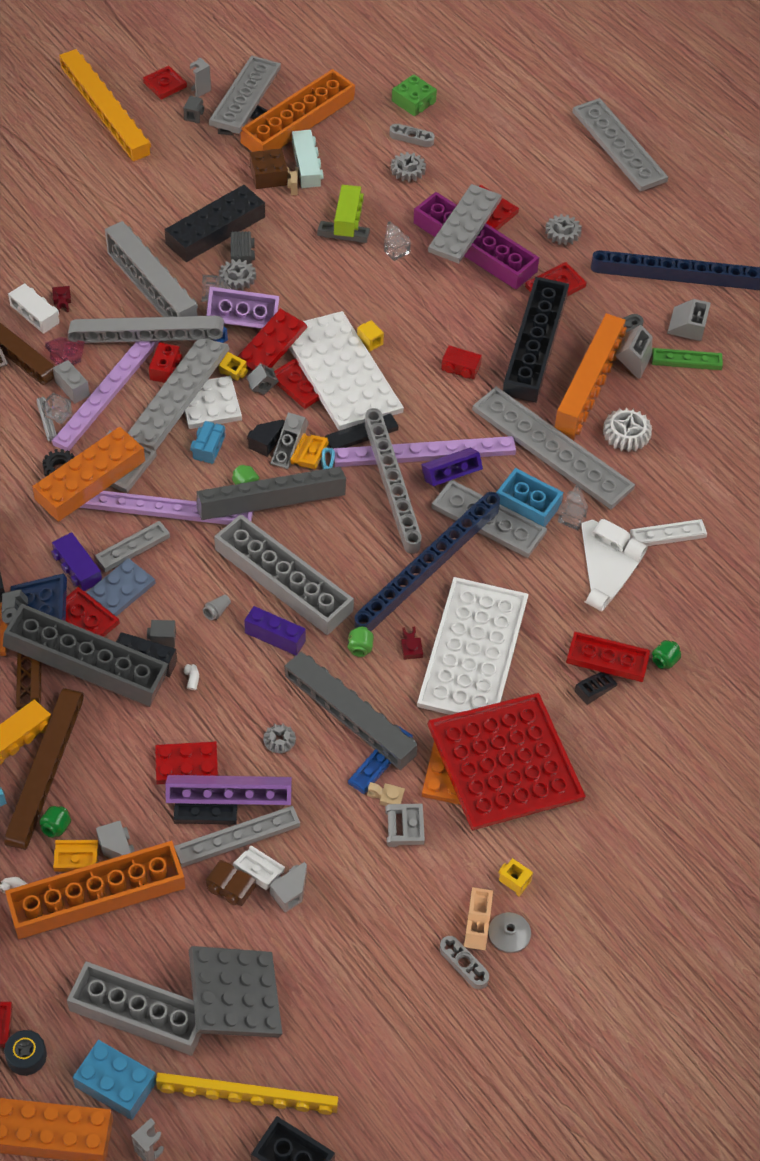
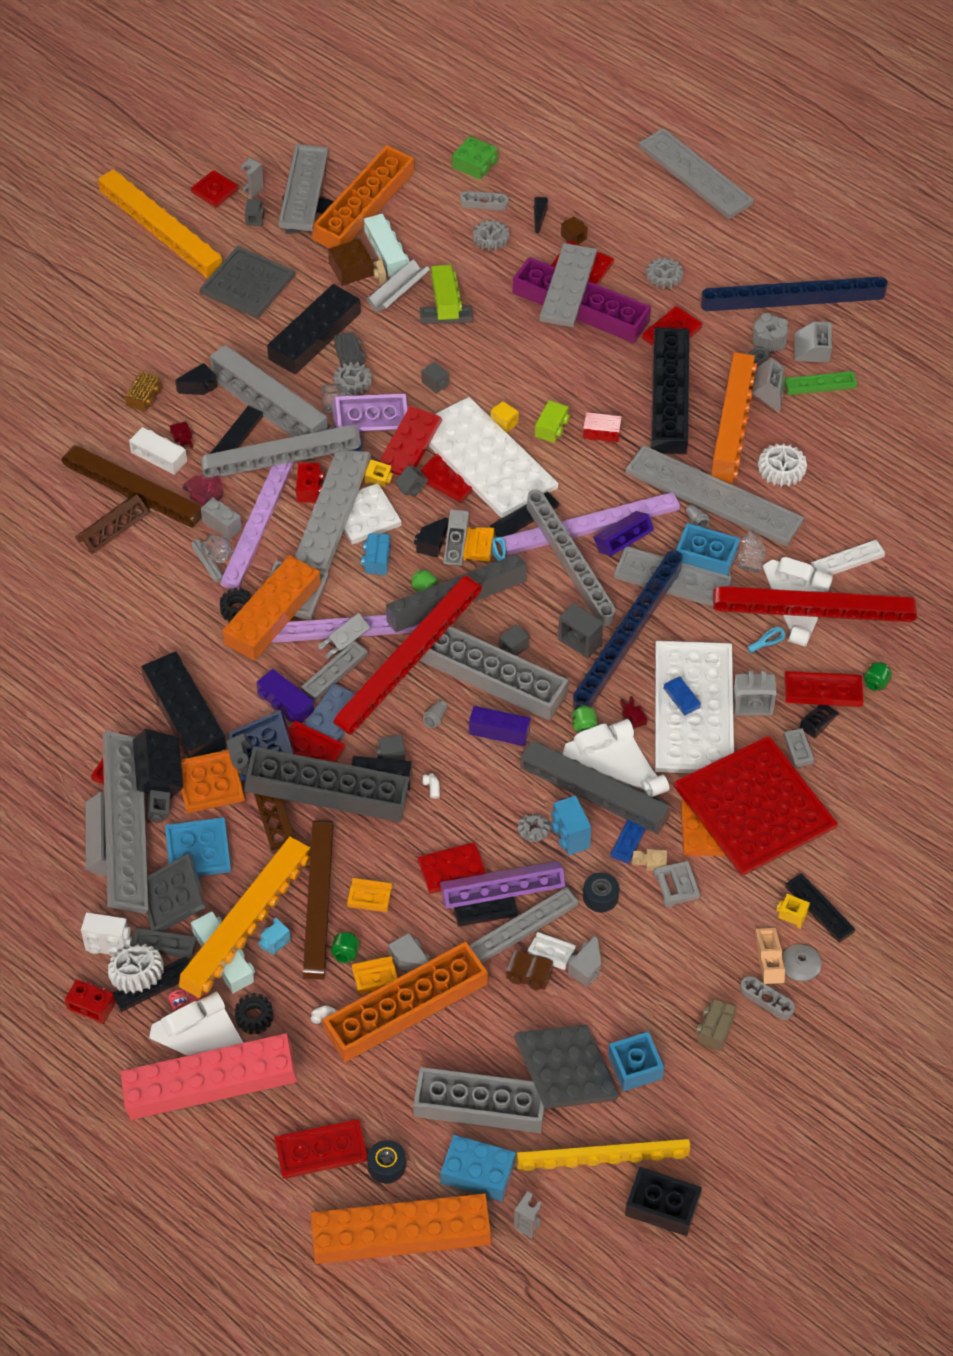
camera: 10 degrees left, 0 degrees up
(38, 252) = (143, 391): none -> pearl gold brick
(91, 251) = (197, 381): none -> black slope
(96, 773) = (369, 895): none -> light orange plate
(117, 303) = (239, 430): none -> black tile
(152, 513) = (345, 635): none -> light grey hinge
(167, 170) = (247, 282): none -> dark grey plate
(202, 543) = (407, 655): none -> red beam
(304, 197) = (396, 285): none -> light grey fence
(308, 1001) = (635, 1061): none -> dark azure brick
(313, 744) = (571, 825): none -> dark azure brick
(315, 287) = (435, 377): none -> dark grey brick
(315, 551) = (514, 640): none -> dark grey brick
(328, 825) = (601, 892): none -> black wheel
(381, 552) = (580, 630): none -> dark grey brick
(382, 682) = (617, 755): none -> white panel
(396, 243) = (501, 316): clear slope -> none
(403, 979) = (716, 1024): none -> dark tan brick
(414, 348) = (552, 421): none -> lime brick
(461, 153) = (540, 210): none -> black slope
(463, 636) = (682, 695): none -> blue plate
(488, 176) = (574, 230): none -> reddish brown brick
(529, 464) = (697, 516): none -> light grey cone
(535, 648) = (754, 694): none -> light grey hinge
(545, 879) = (820, 908): none -> black tile
(559, 598) = (761, 643): none -> medium azure piece
(567, 711) = (798, 748): none -> light grey plate
(622, 571) = (814, 604): none -> red beam
(650, 302) = (770, 332): none -> light grey brick

